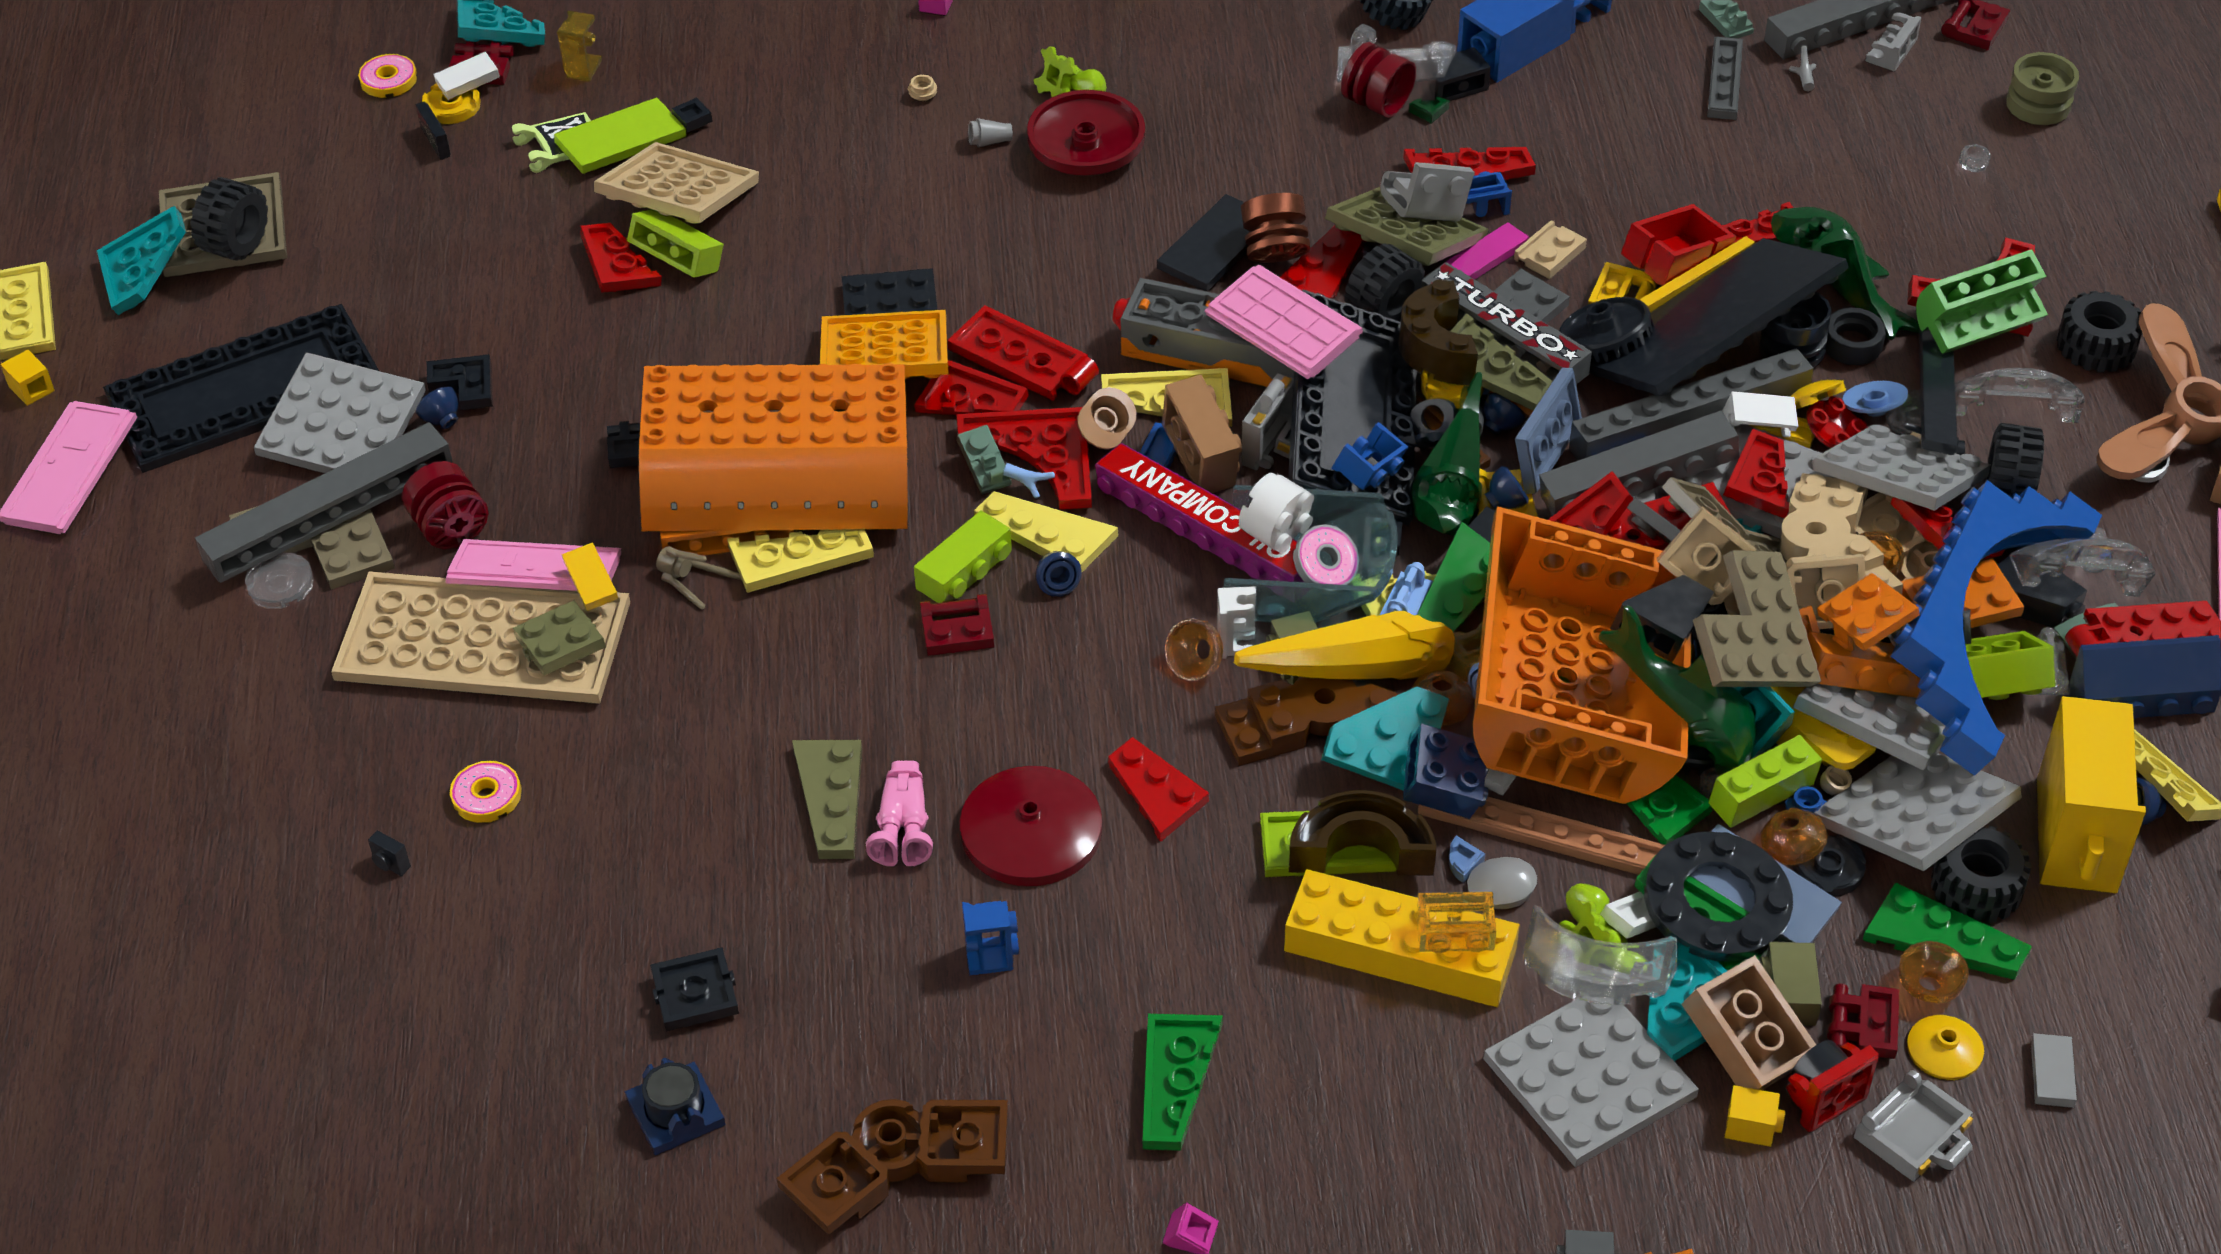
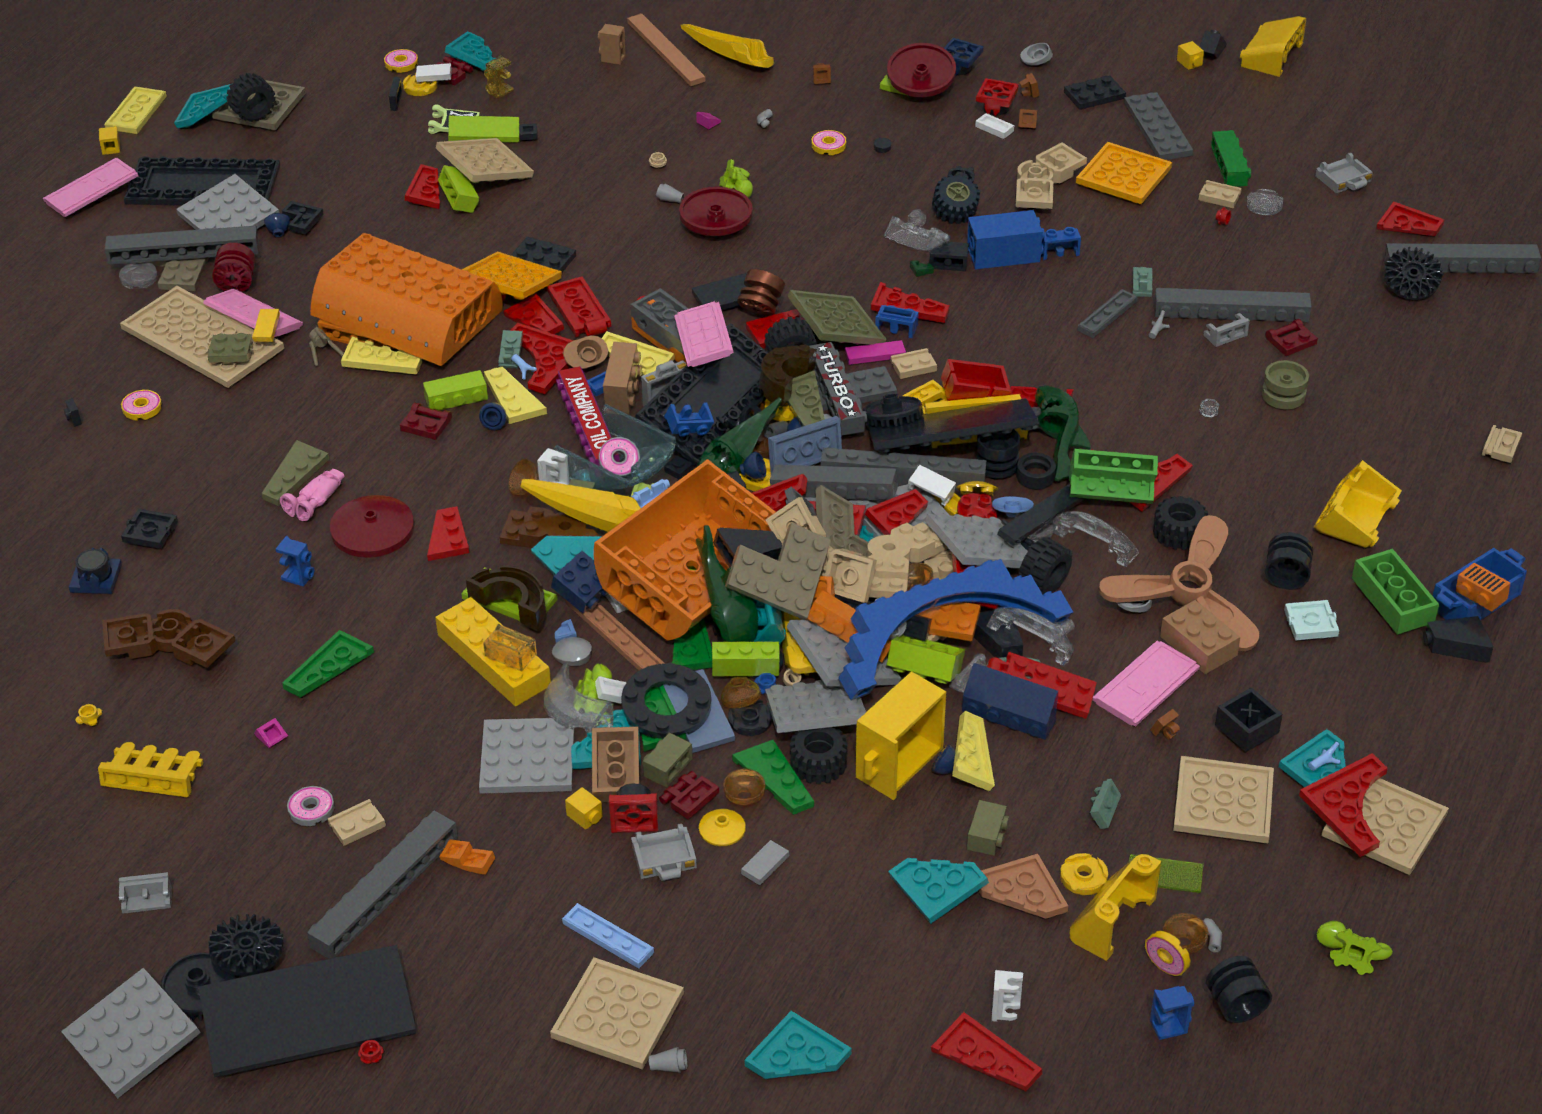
camera: 30 degrees right, 5 degrees down
(1277, 512) = (607, 420): white brick -> none
(1378, 79) = (897, 240): dark red wheel -> none
(1428, 191) = (858, 304): light grey piece -> none
(1867, 613) = (853, 589): orange piece -> none

